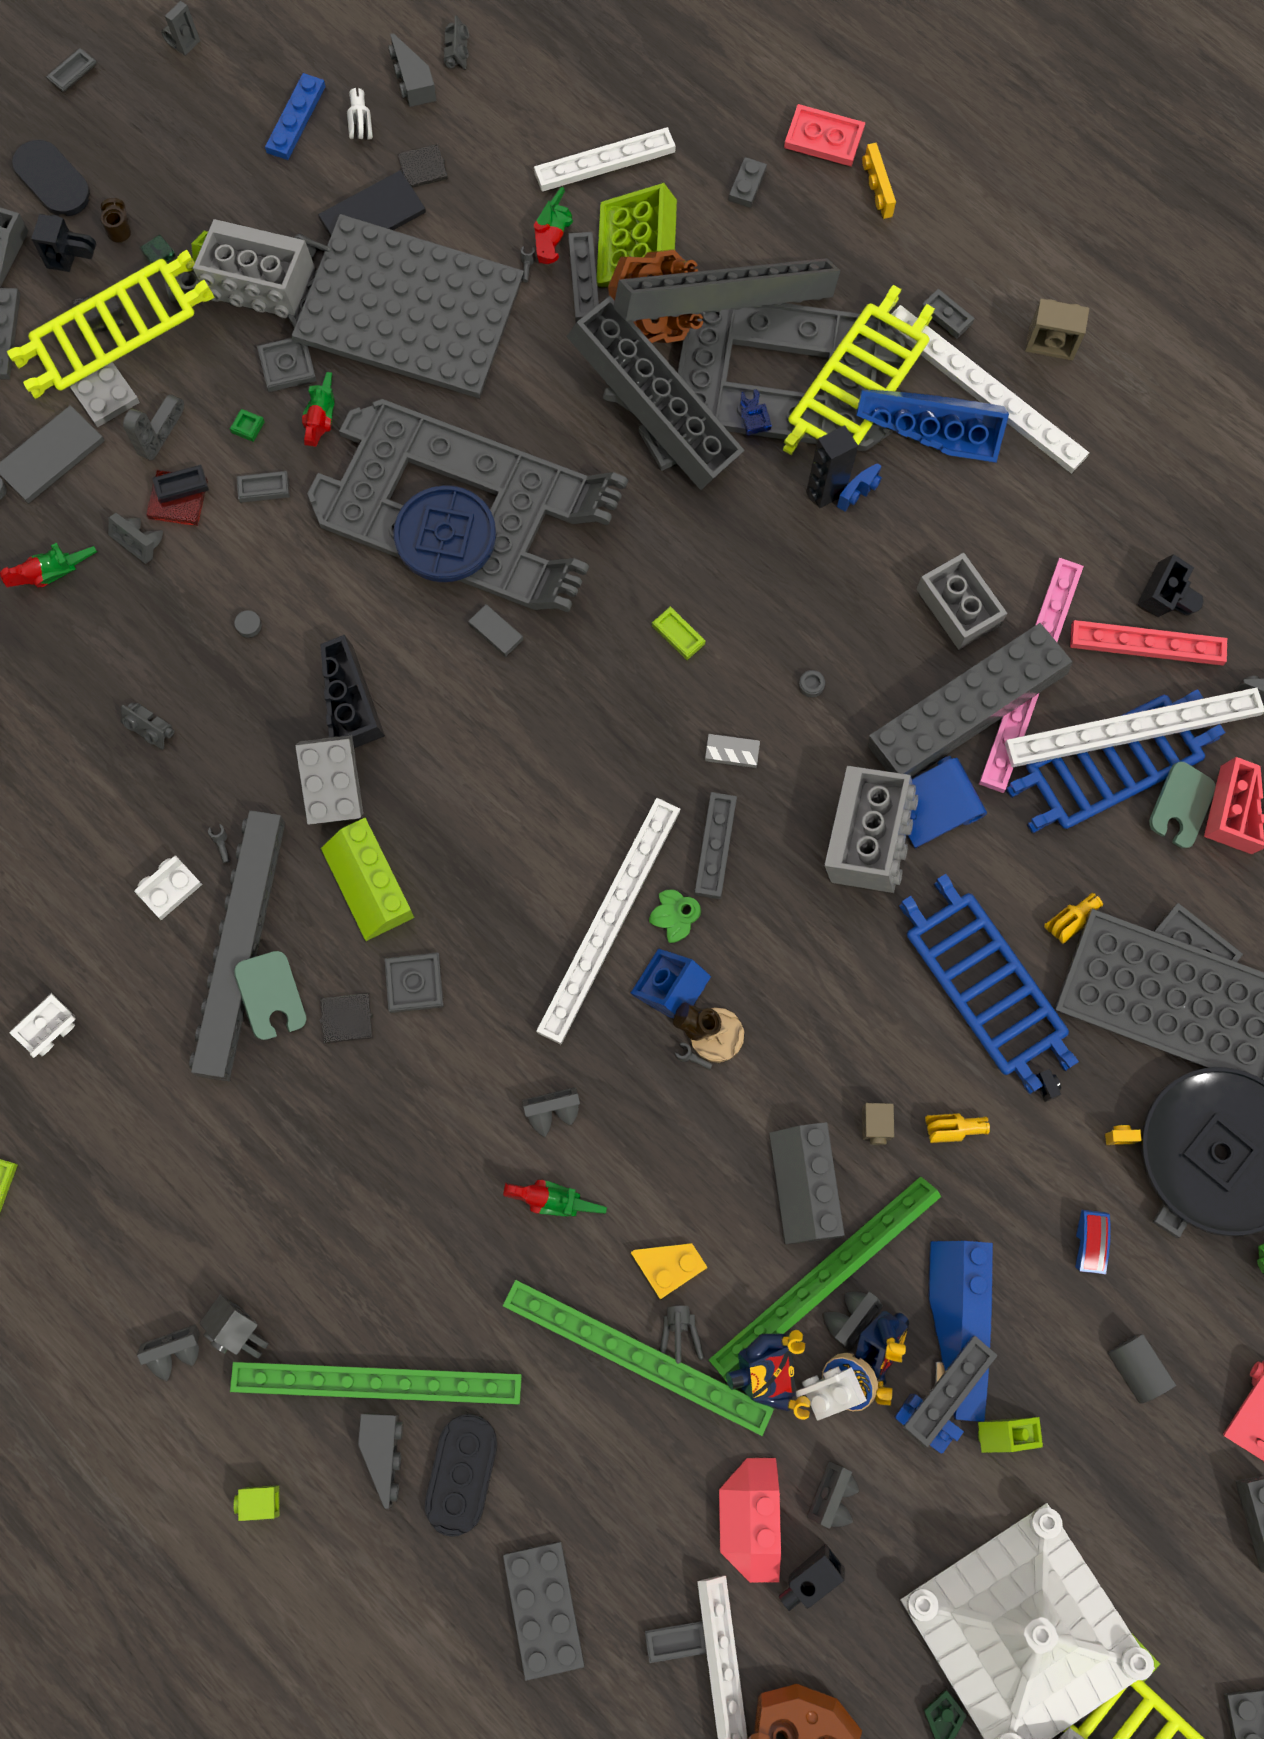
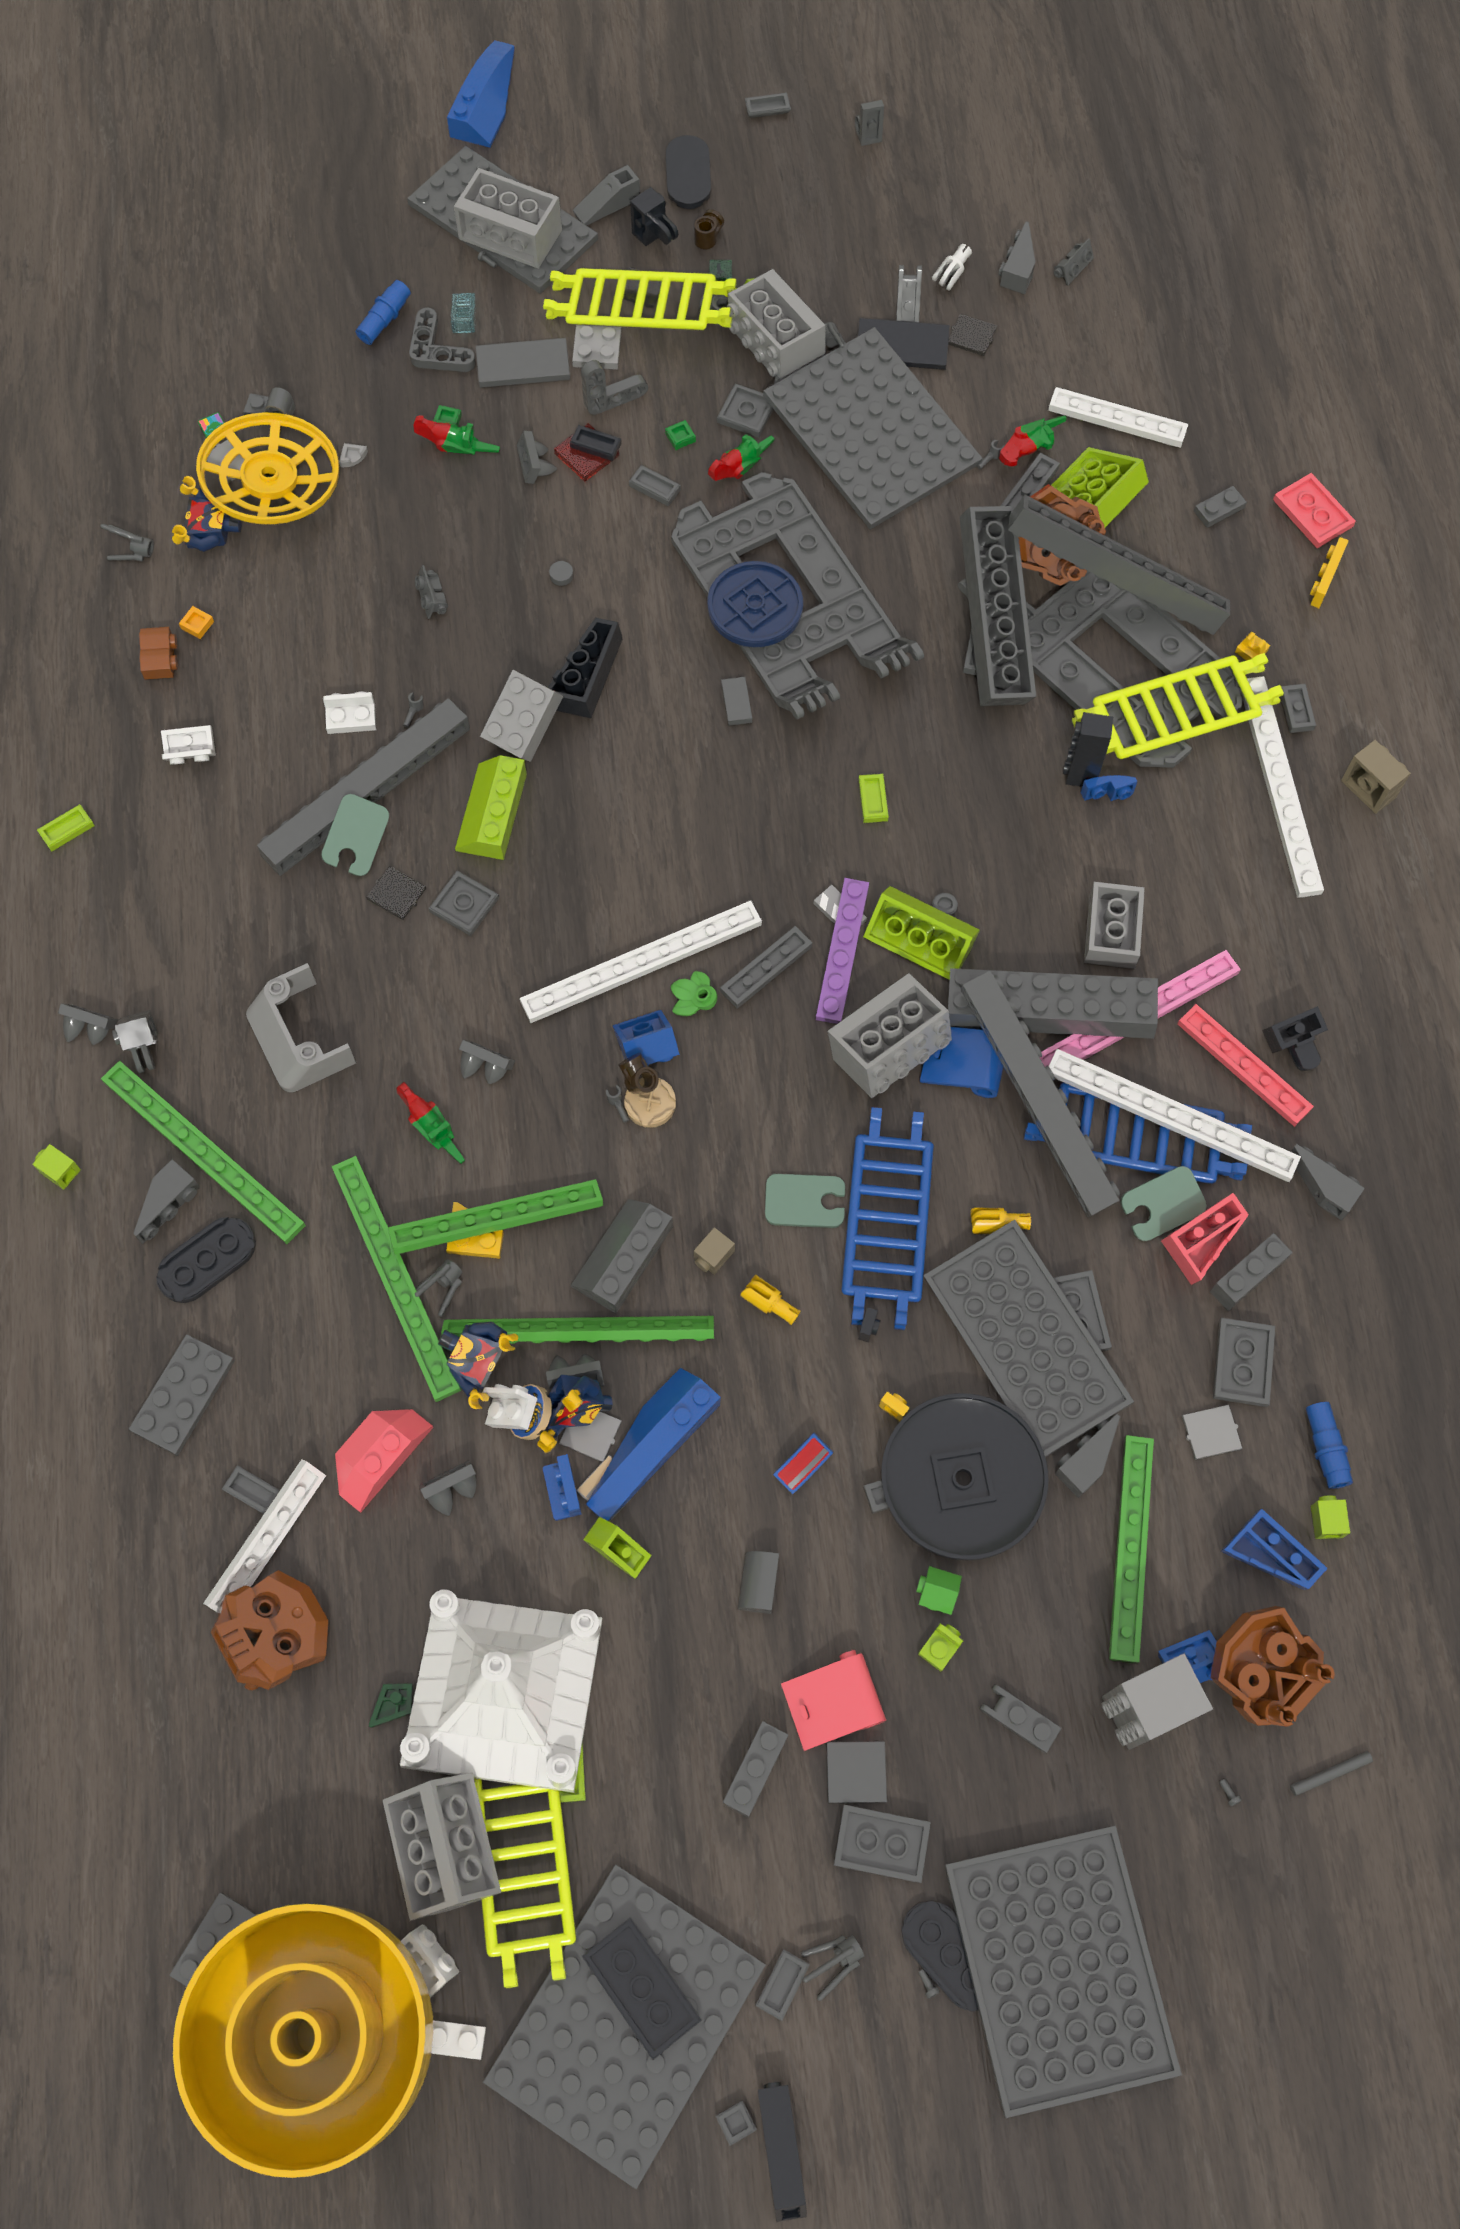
camera: 40 degrees right, 5 degrees down
(21, 550) = (447, 415): none -> green tile
(295, 116) = (905, 238): blue plate -> none
(347, 166) = (908, 295): none -> hinge
(385, 1245) = (291, 1064): none -> light grey windscreen
(679, 1240) = (495, 1216): none -> bright green plate
(753, 415) = (1068, 677): clear blue plate -> none
(765, 784) = (842, 951): none -> medium lavender plate
(815, 721) = (920, 932): none -> lime slope
(822, 1570) = (384, 1524): black torso -> none
(871, 287) = (1251, 647): none -> yellow tile
(902, 1025) = (797, 1200): none -> sand green piece
(915, 1361) = (592, 1439): none -> light grey piece
(941, 422) = (1217, 784): blue wedge -> none
(949, 1391) = (592, 1469): dark grey plate -> none
(1027, 788) = (1040, 1094): none -> dark grey brick

